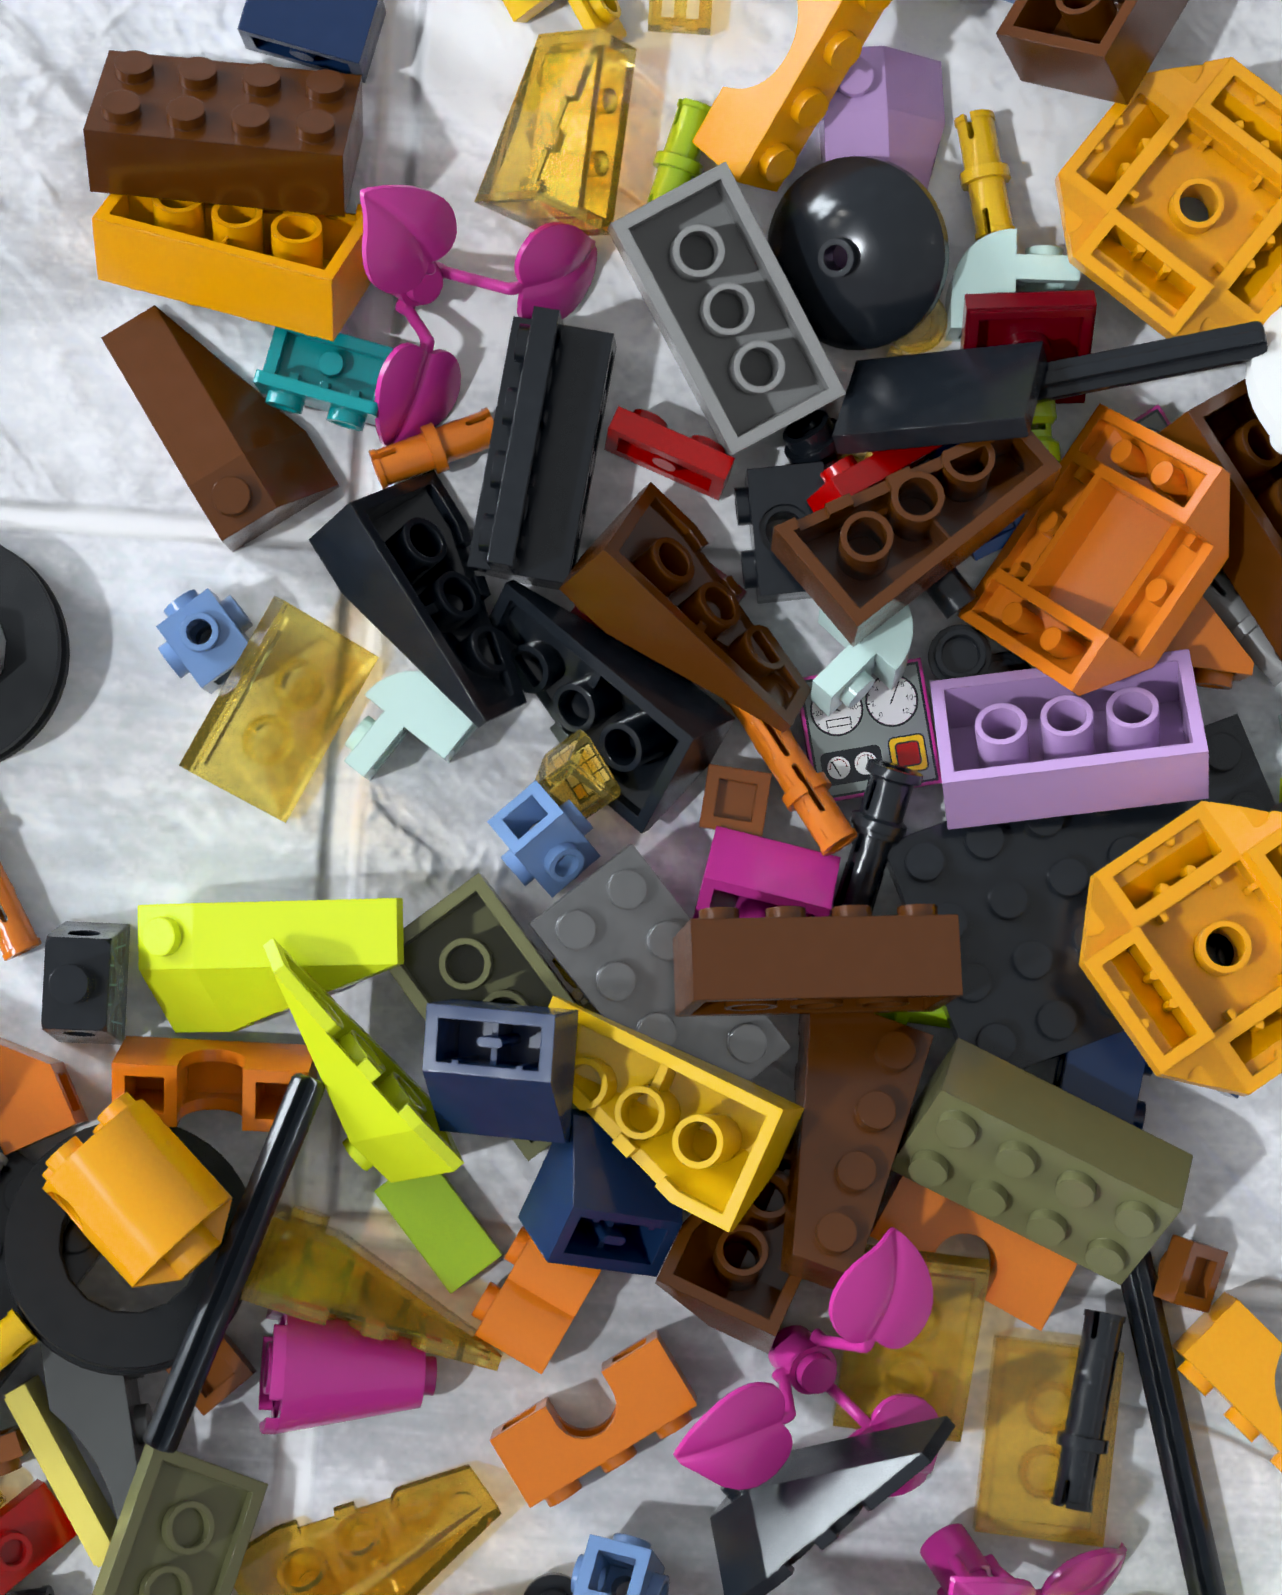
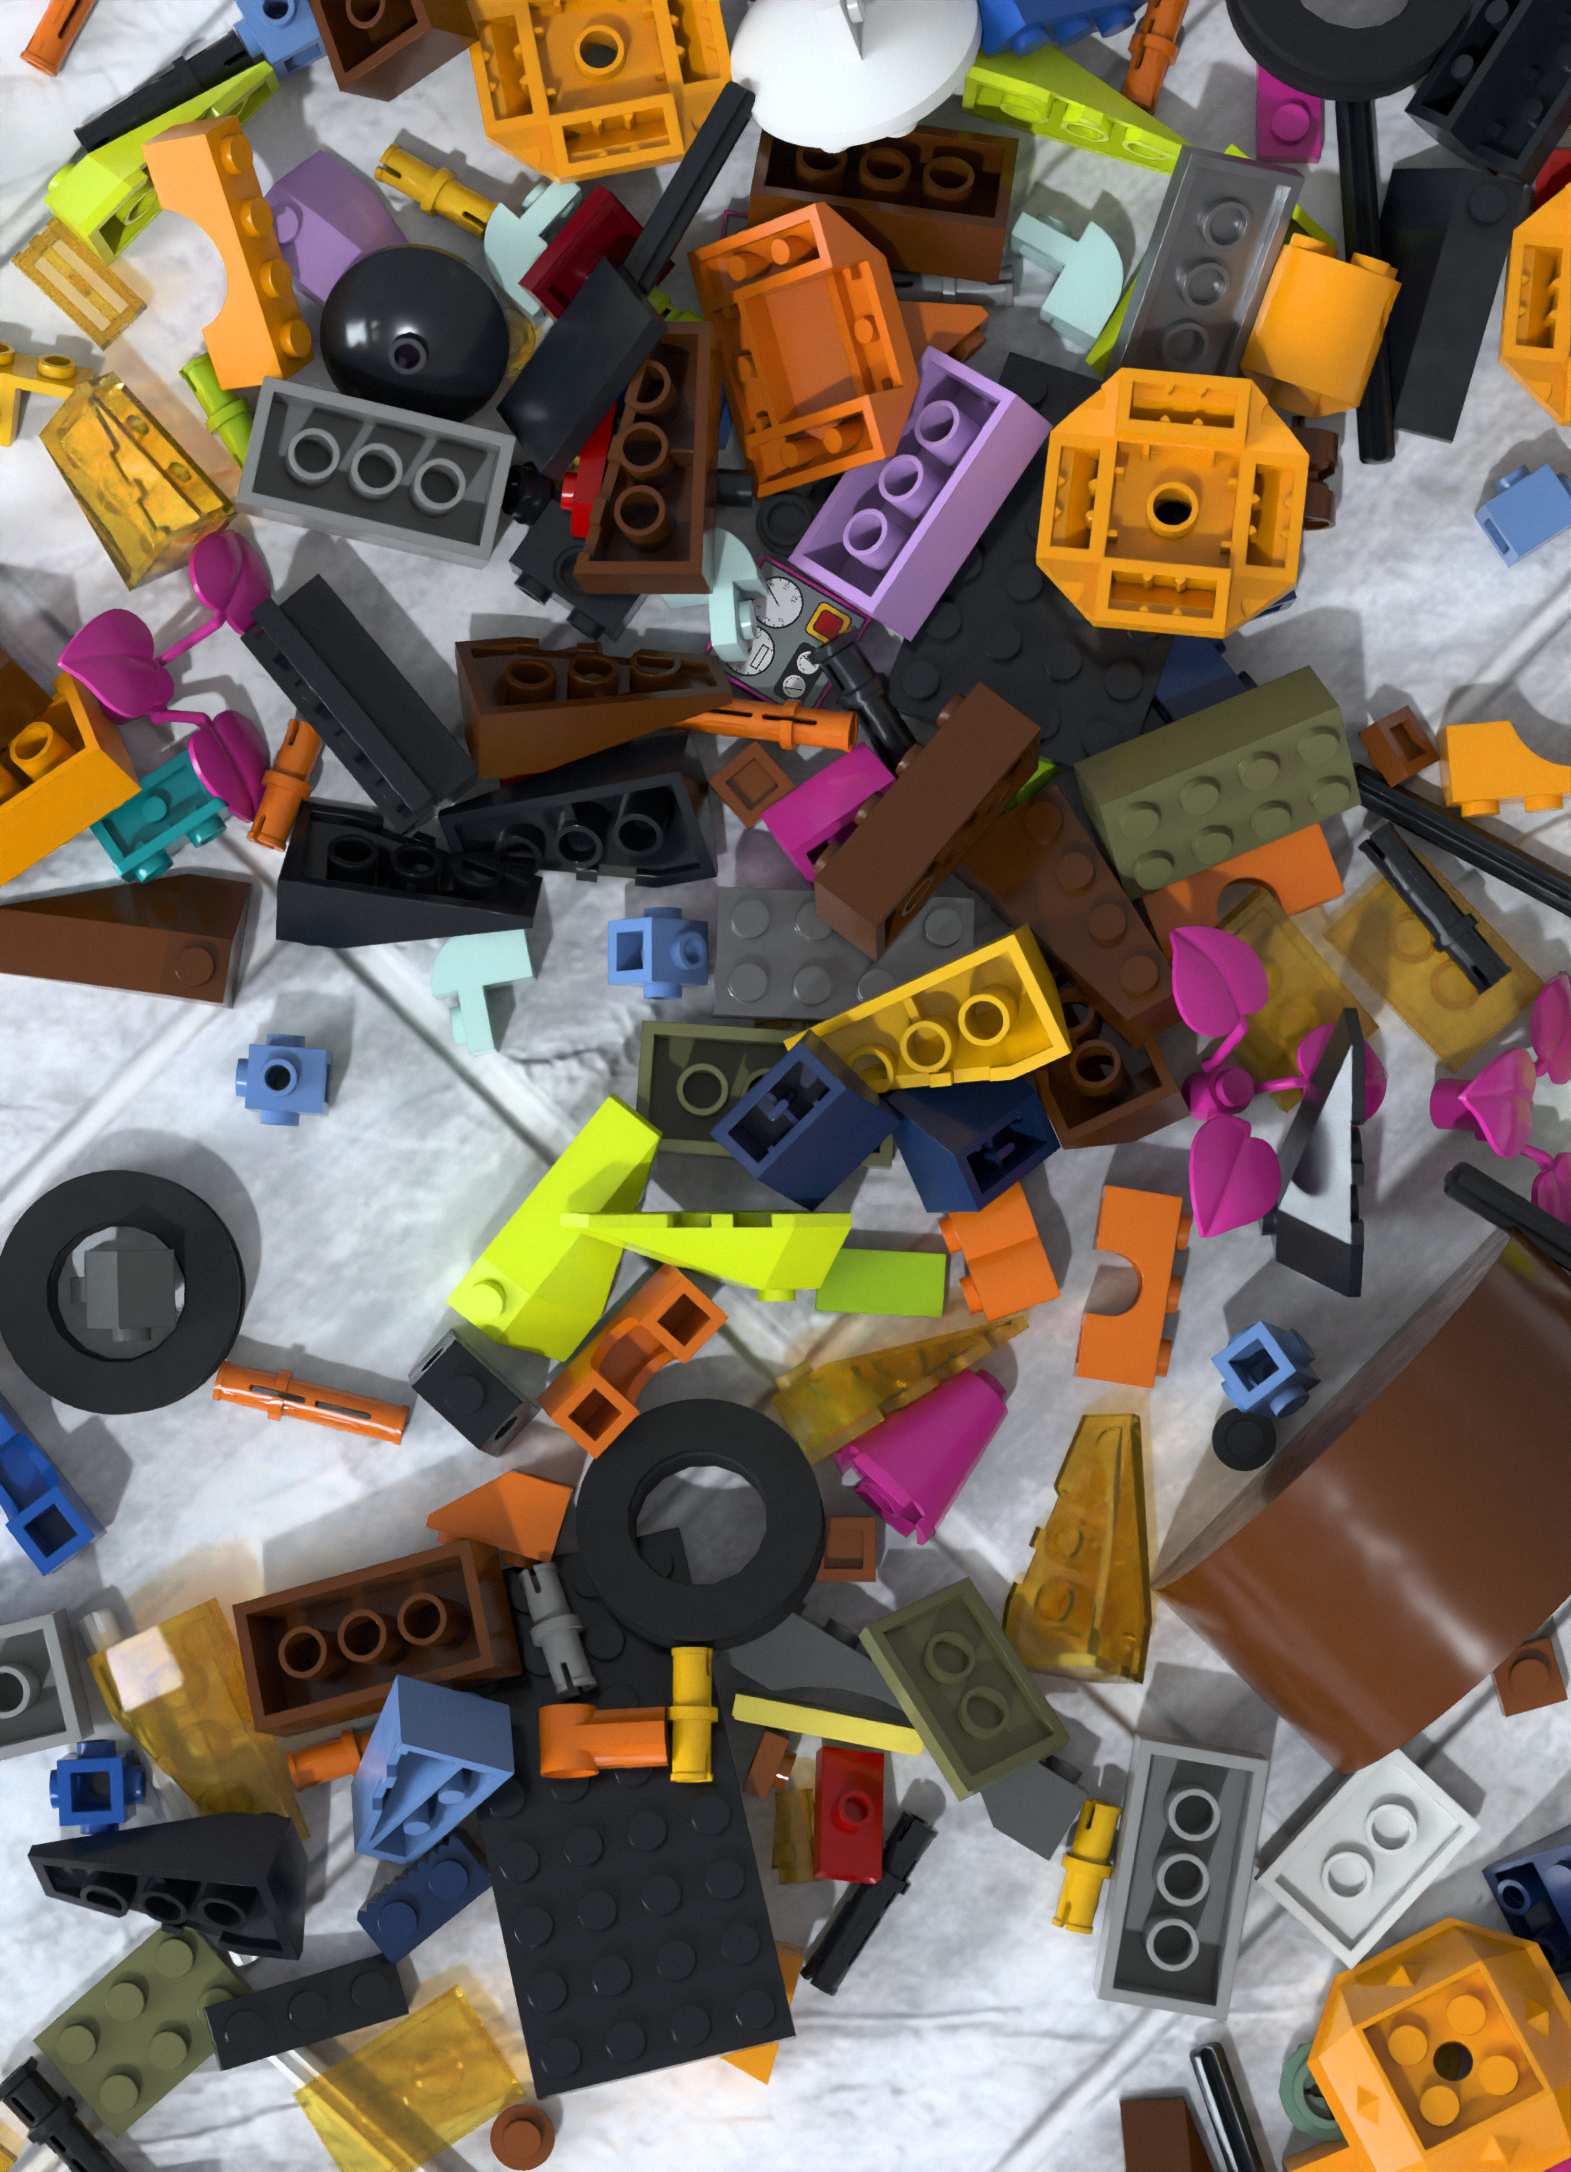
camera: 50 degrees left, 0 degrees up
(139, 1195) = (668, 1473): light orange cylinder -> none
(234, 1263) = (780, 1447): black axle -> none
(279, 710) = (387, 1070): clear yellow tile -> none
(579, 774) = (629, 885): clear yellow slope -> none
(650, 444) = (425, 618): red plate -> none

